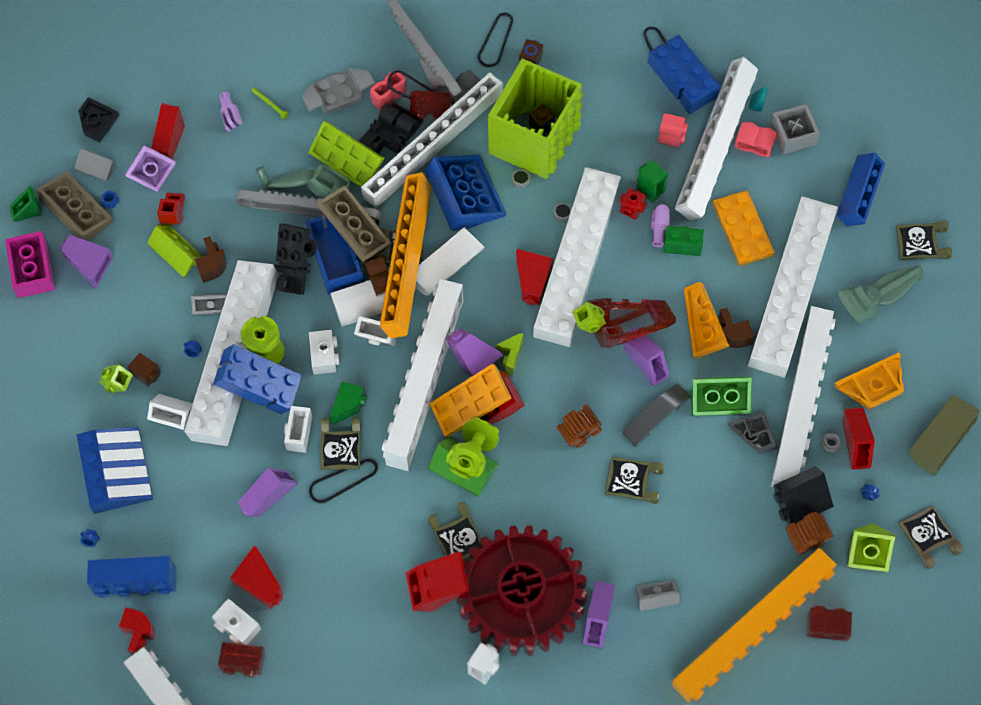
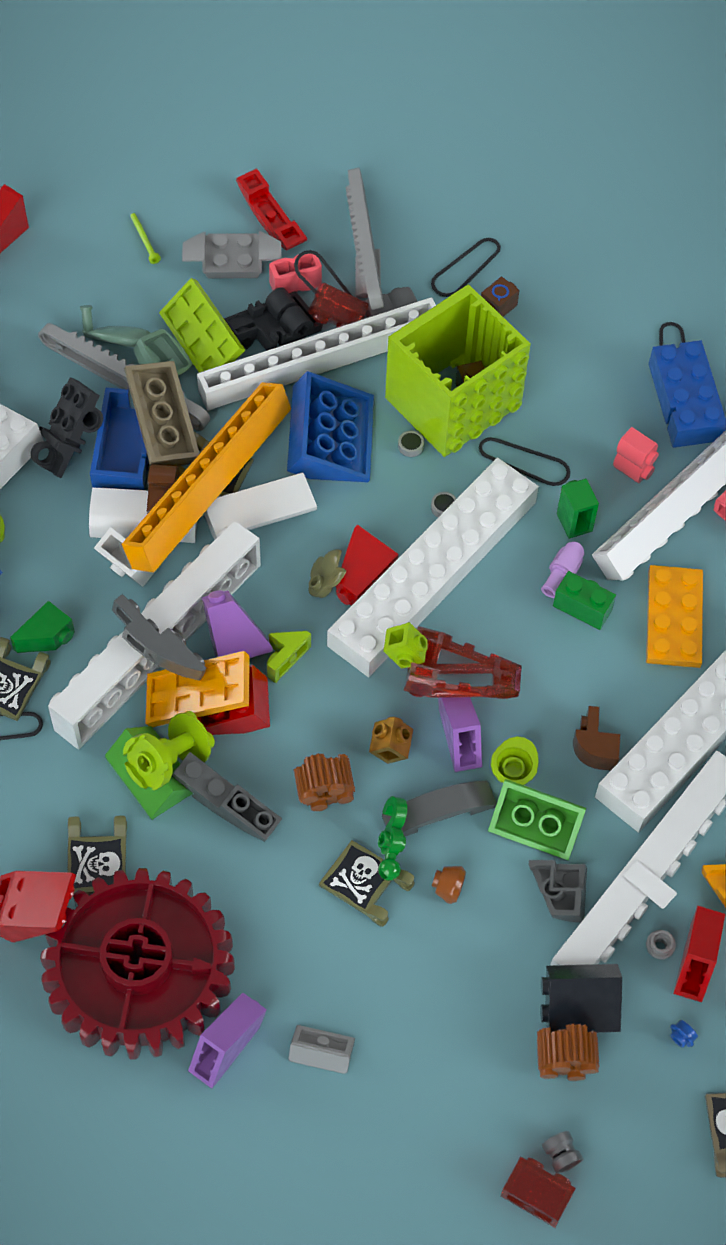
camera: 20 degrees right, 5 degrees down
(229, 112) = (88, 230): lavender arm -> none
(322, 352) = (47, 557): white brick -> none
(345, 51) = (267, 210): none -> red slope
(441, 384) = (163, 649): none -> dark grey slope
(484, 663) = (38, 1037): white brick -> none
(511, 289) = (325, 574): none -> olive plate
(522, 464) = (225, 799): none -> dark grey slope
(595, 153) = (529, 451): none -> black piece
(607, 382) = (391, 740): none -> pearl gold brick
(632, 203) = (539, 527): red brick -> none
(639, 445) = (392, 839): none -> green piece
(687, 458) = (449, 883): none -> dark orange cone
(691, 364) = (515, 760): none -> lime piece
(703, 323) = (558, 719): light orange wing -> none
(754, 625) = (431, 1147): light orange brick -> none
(810, 408) = (650, 884): none -> white sticker
(829, 590) = (562, 1152): none -> flat silver wheel
(870, 548) = (646, 1111): lime slope -> none

